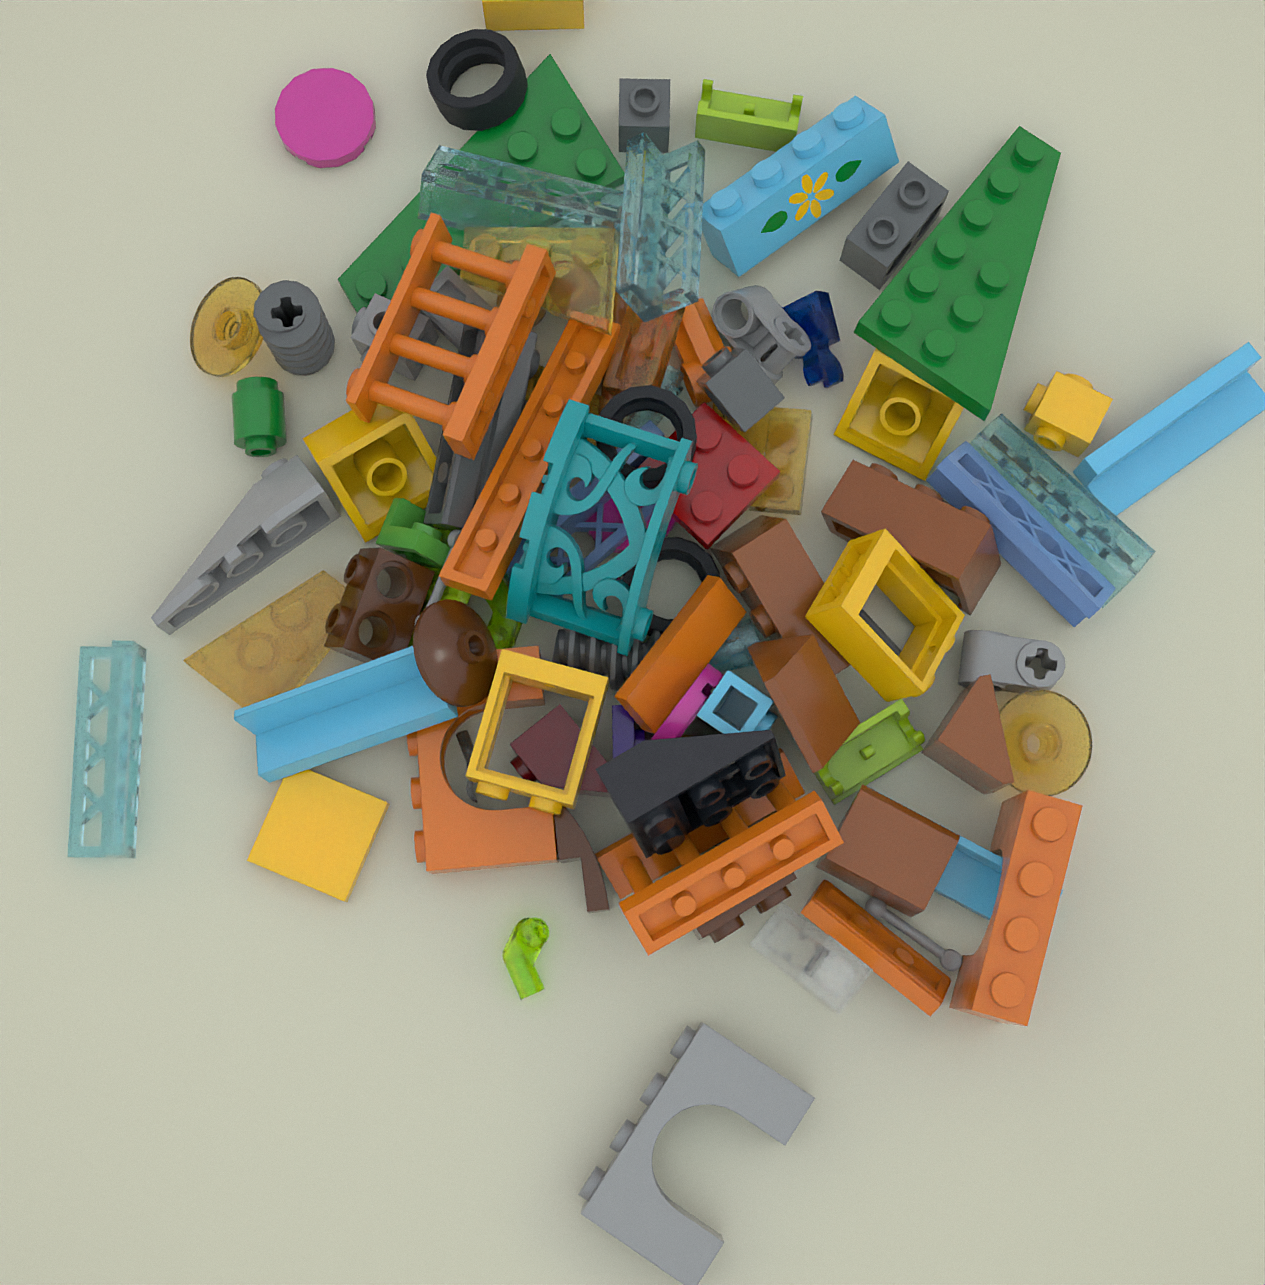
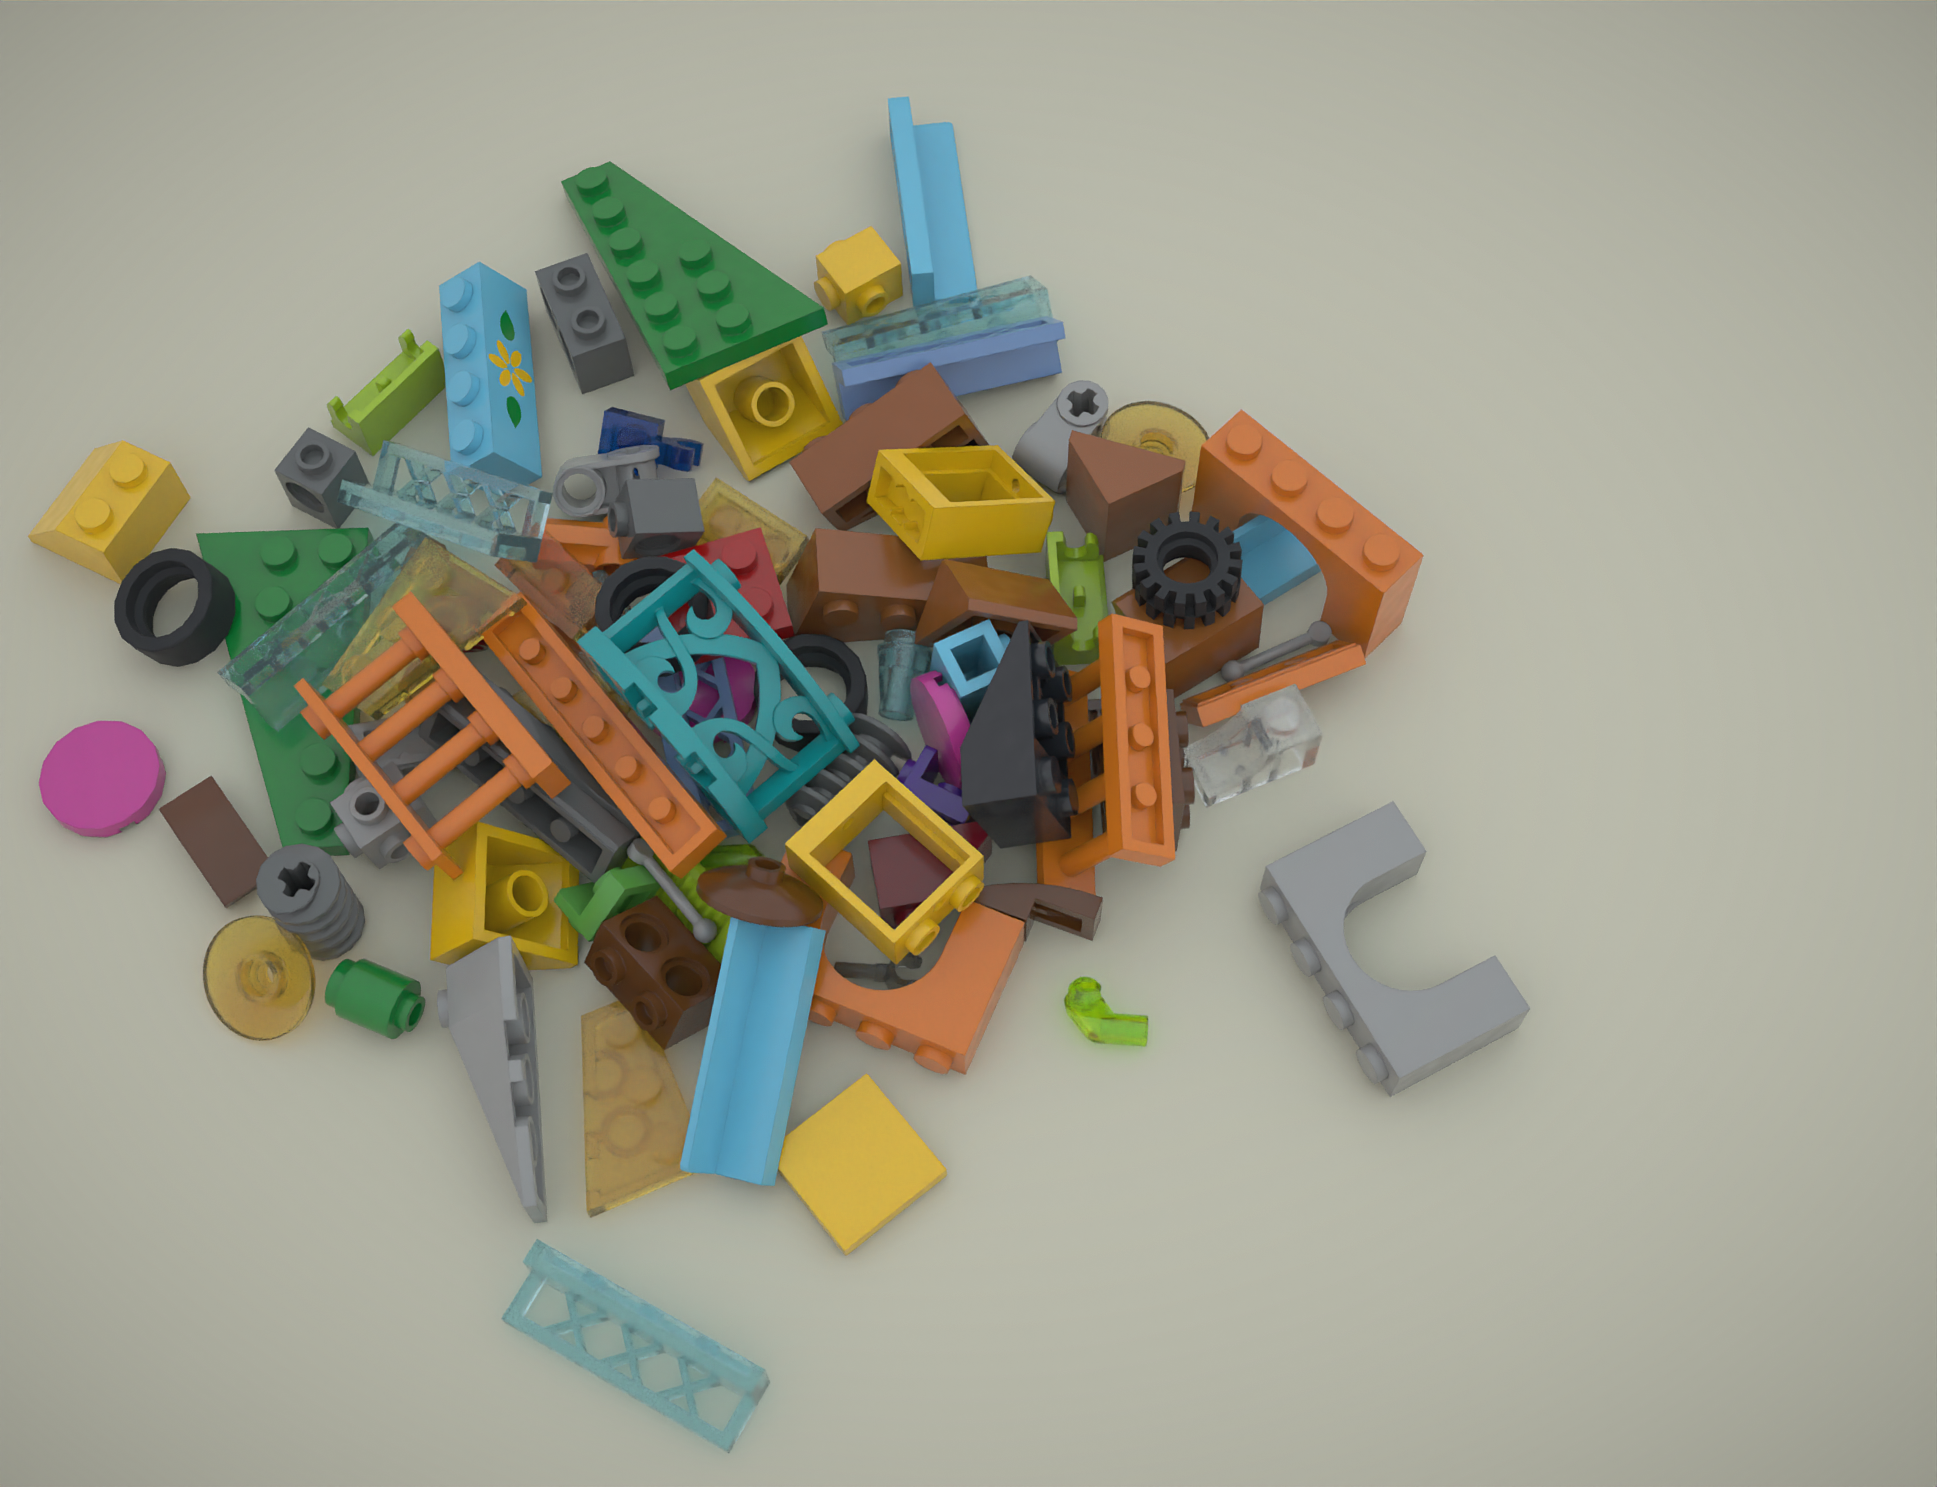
camera: 60 degrees left, 15 degrees down
(318, 230) = (216, 840): none -> reddish brown slope
(680, 654) = (887, 699): orange tile -> none
(947, 829) = (1193, 541): none -> black tyre

